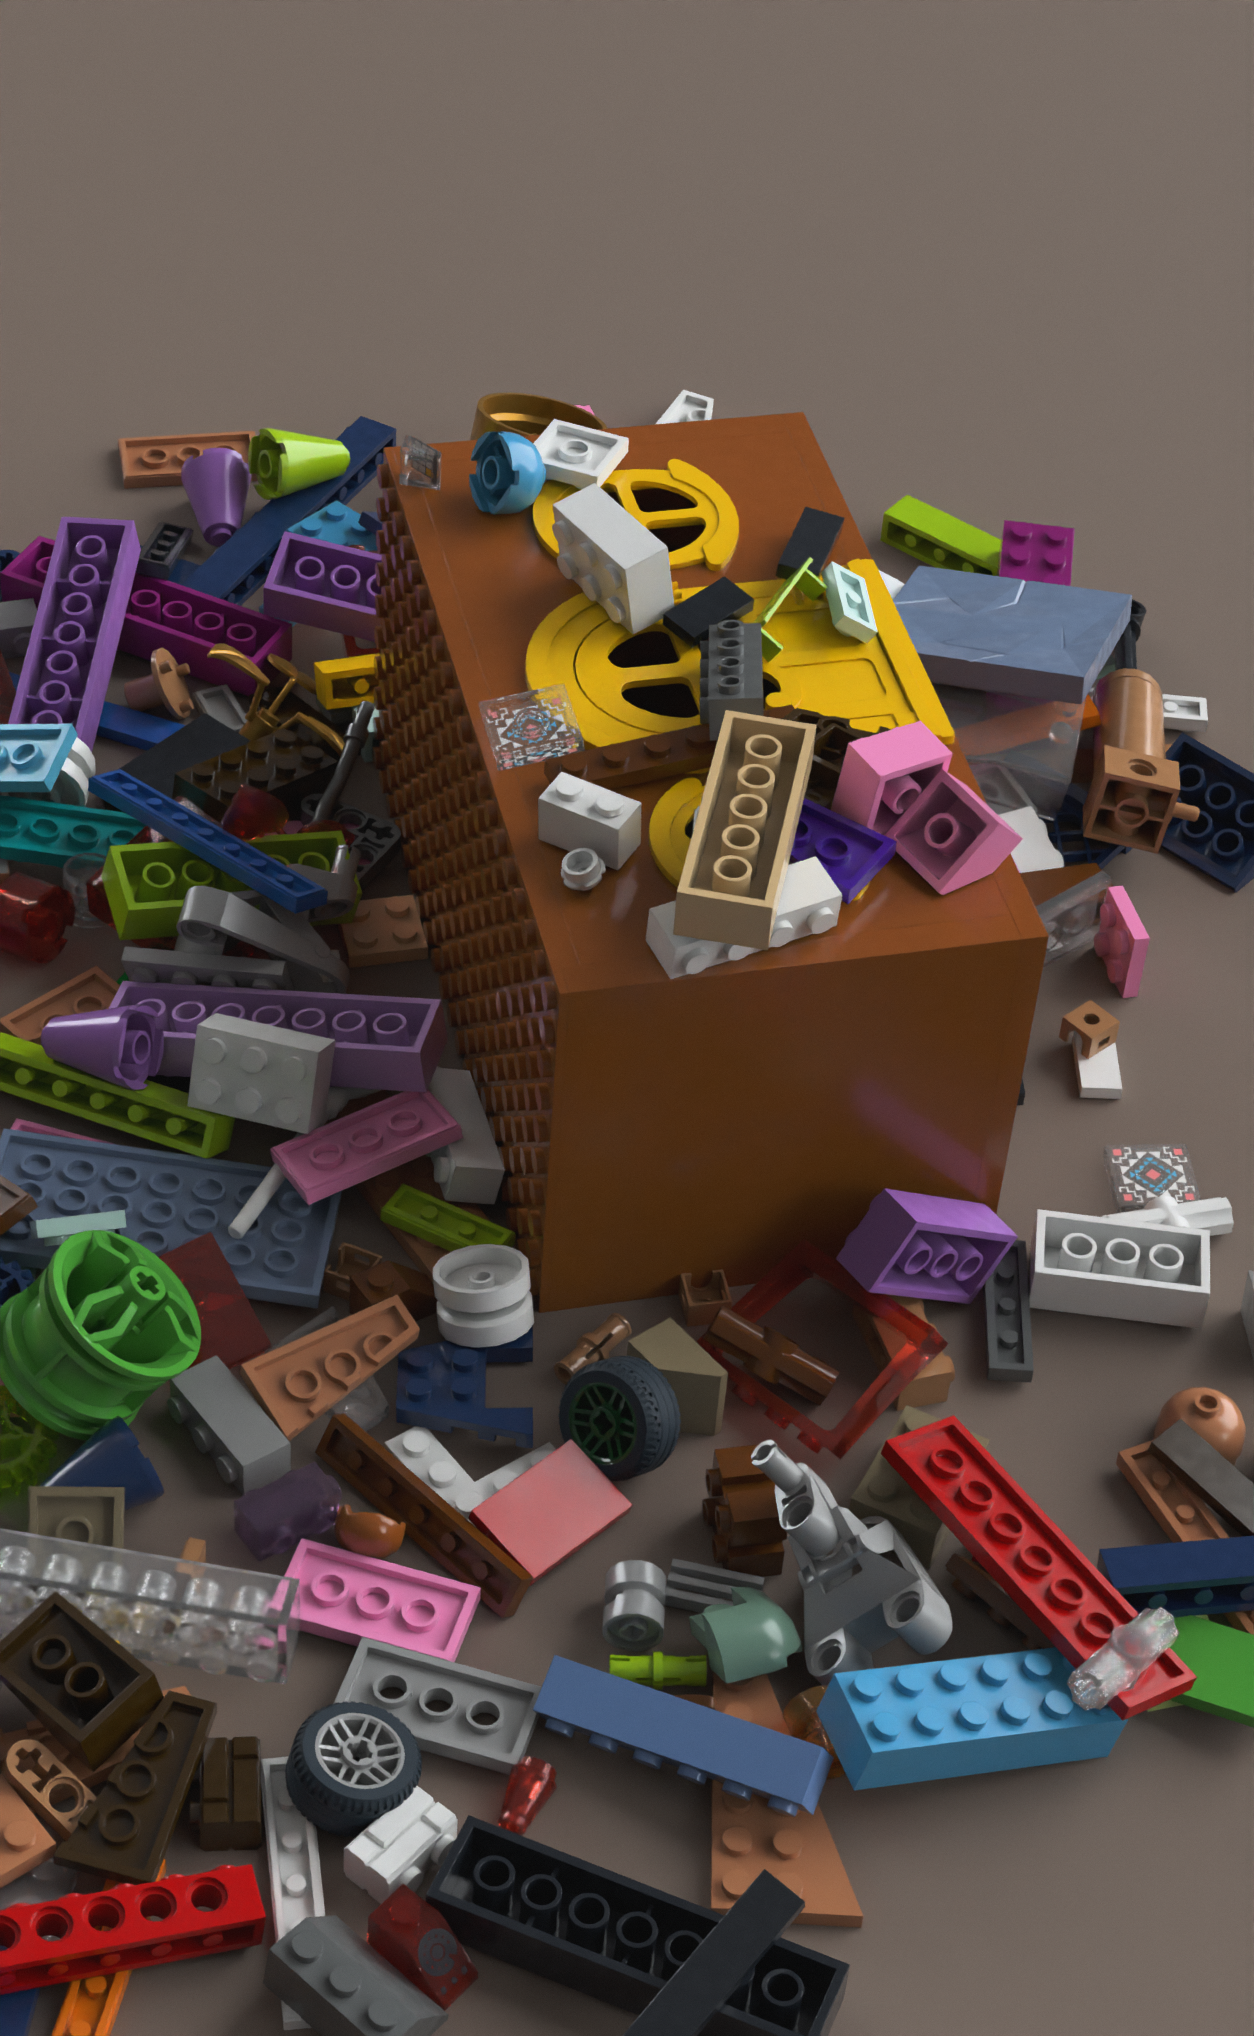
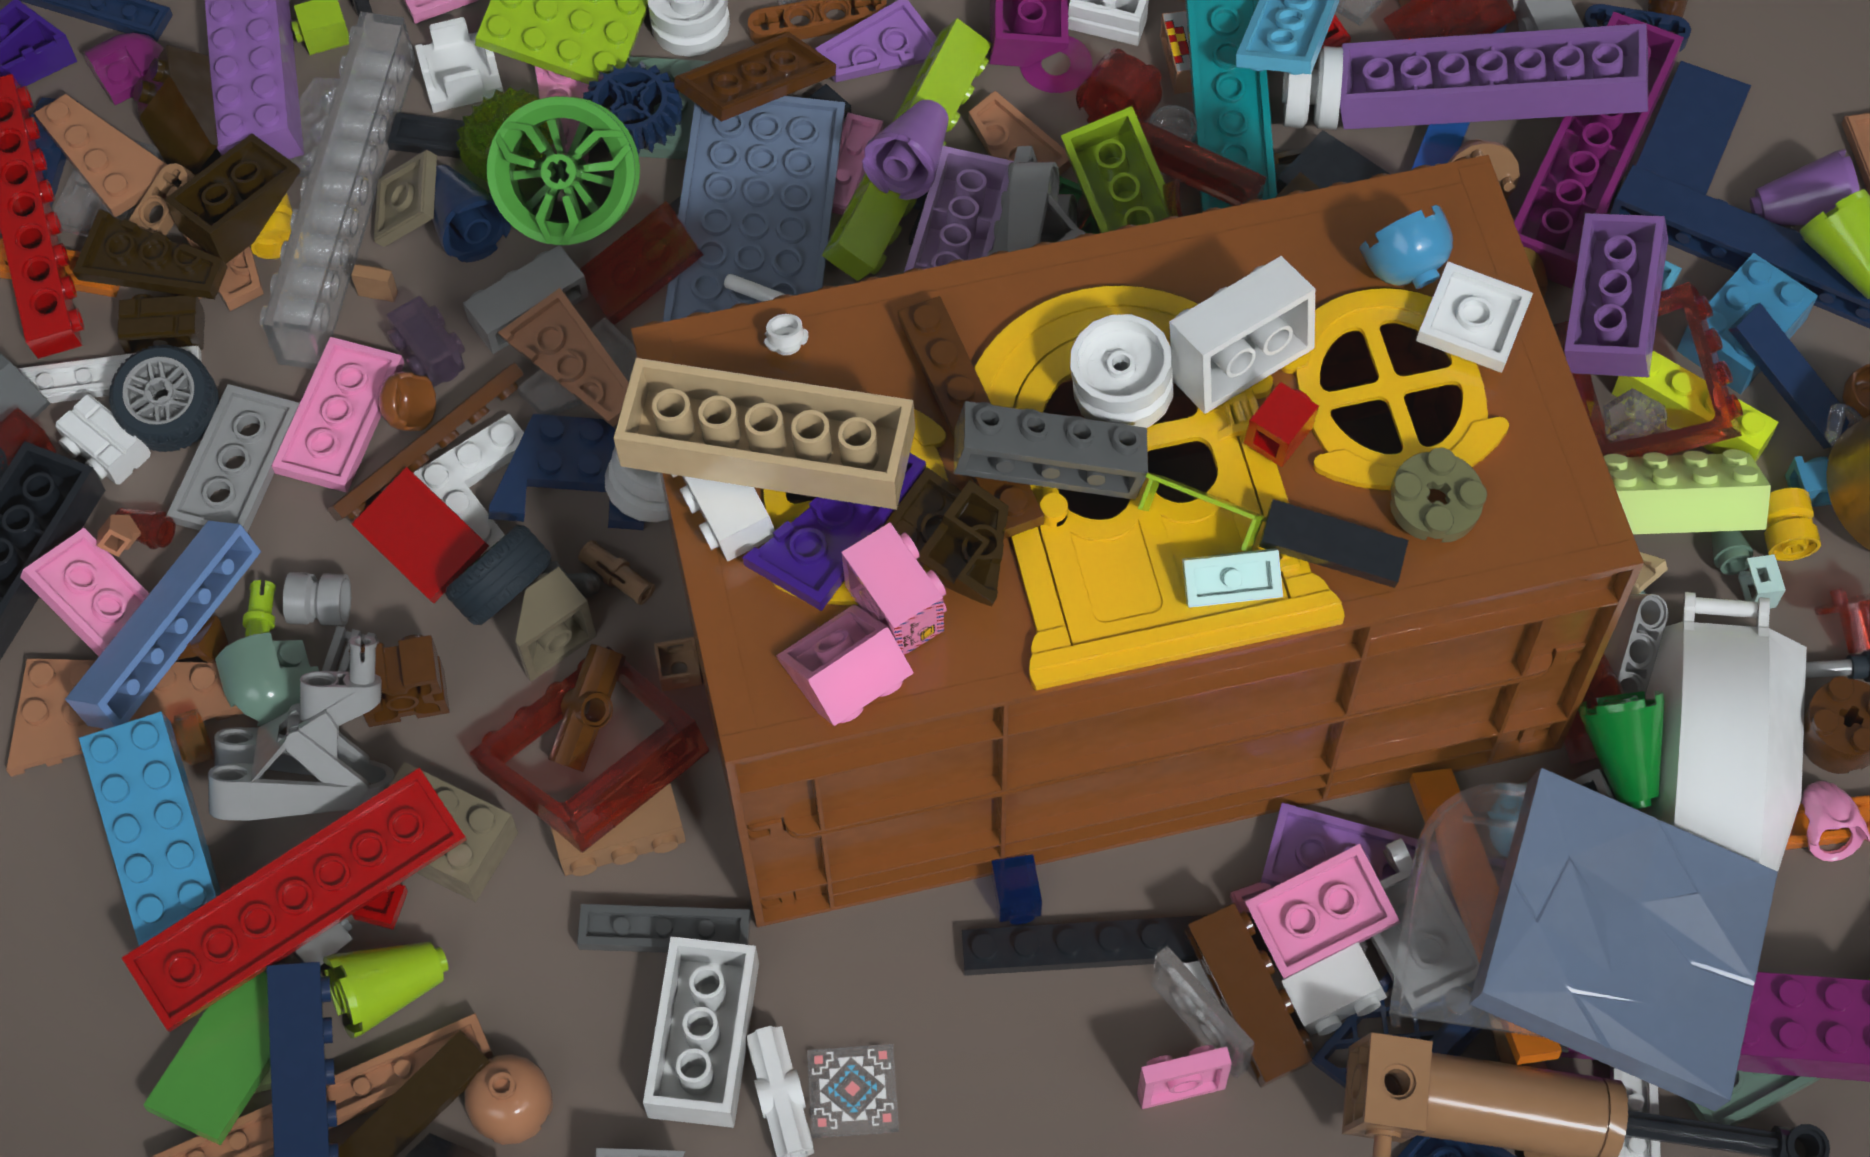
camera: 95 degrees right, 20 degrees up
(58, 1230) = (709, 155): light aqua plate -> none
(164, 550) = (1700, 150): black tile -> none
(208, 841) = (1180, 160): blue tile -> none
(261, 1073) = (880, 241): white brick -> none
(419, 464) = (1437, 172): clear slope -> none
(531, 726) = (1005, 290): clear tile -> none
(551, 1801) = (117, 534): none -> nougat piece
(591, 817) = (841, 332): white brick -> none
(636, 1820) = (86, 589): none -> bright pink plate
(646, 639) = (1122, 371): none -> white wheel
(699, 554) = (1281, 423): none -> red brick
(708, 607) = (1203, 442): black tile -> none
(757, 492) = (1442, 472): none -> olive plate
(926, 1246) = (674, 823): medium lavender brick -> none
(1092, 1025) = (1050, 1050): medium nougat piece -> none
(1097, 1516) = (382, 981): none -> lime cone
(1099, 1074) = (1020, 1050): white tile -> none
(1122, 1658) = (135, 927): clear piece -> none

